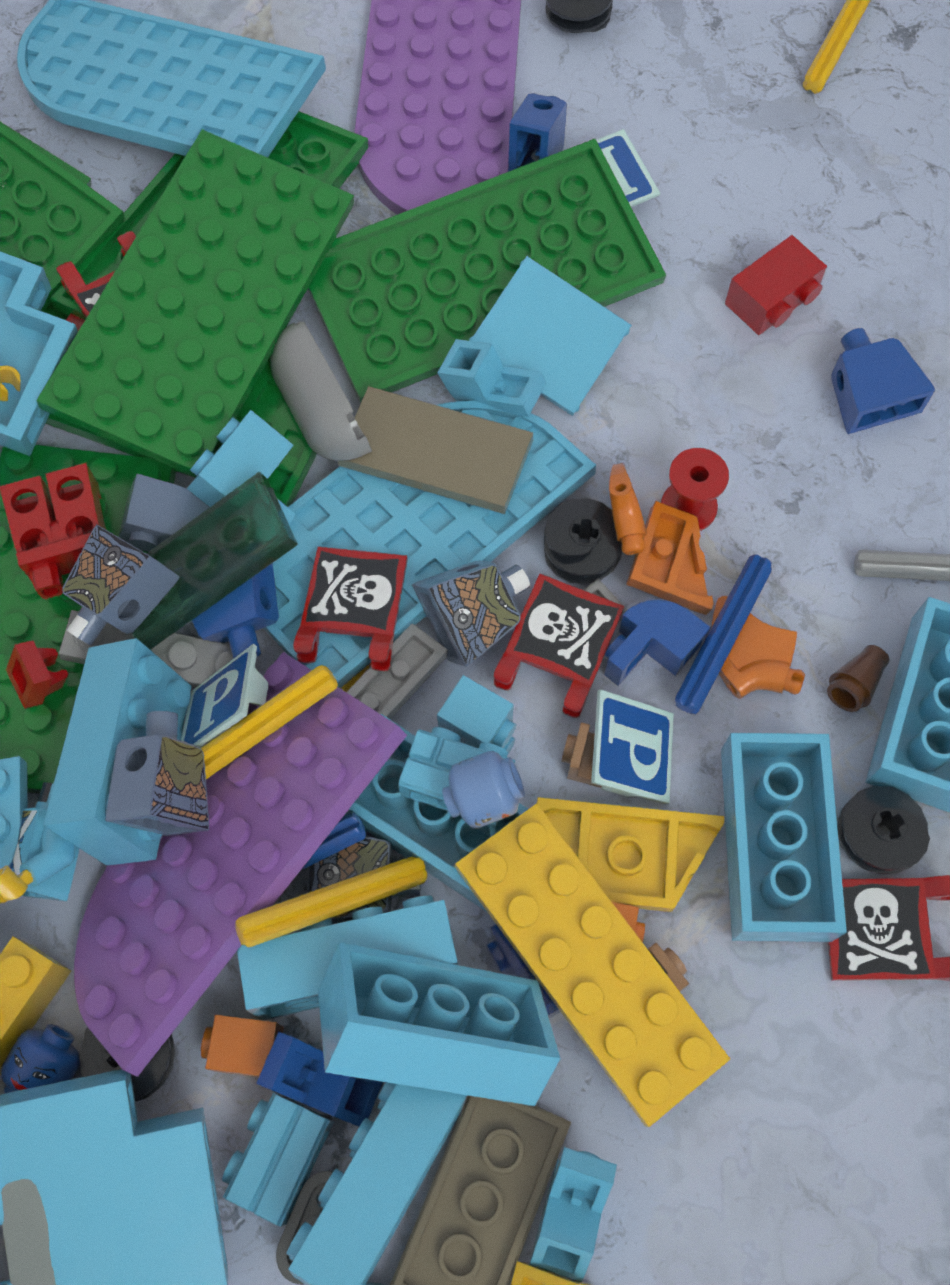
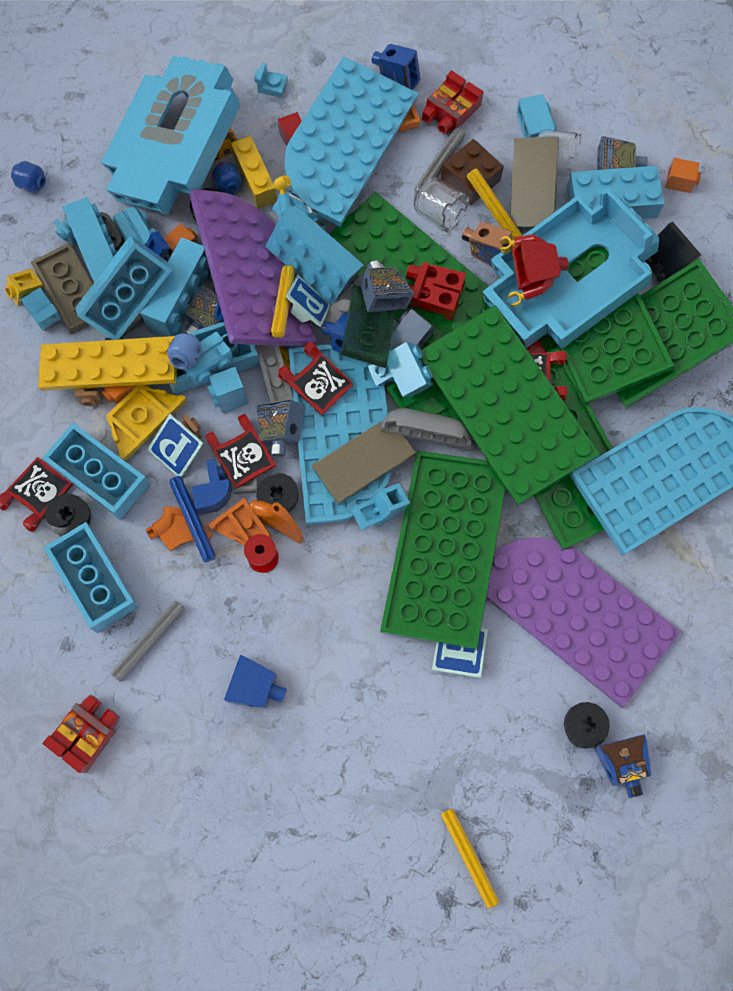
camera: 125 degrees right, 5 degrees up
(30, 675) = (371, 245): red tile -> none
(159, 781) = (282, 251): sand blue torso -> none
(329, 901) = (196, 287): yellow axle -> none
(536, 126) = (501, 621): blue torso -> none
(552, 330) = (387, 553): medium azure piece -> none
(776, 285) = (338, 682): red brick -> none
(857, 681) = (132, 559): reddish brown cone -> none

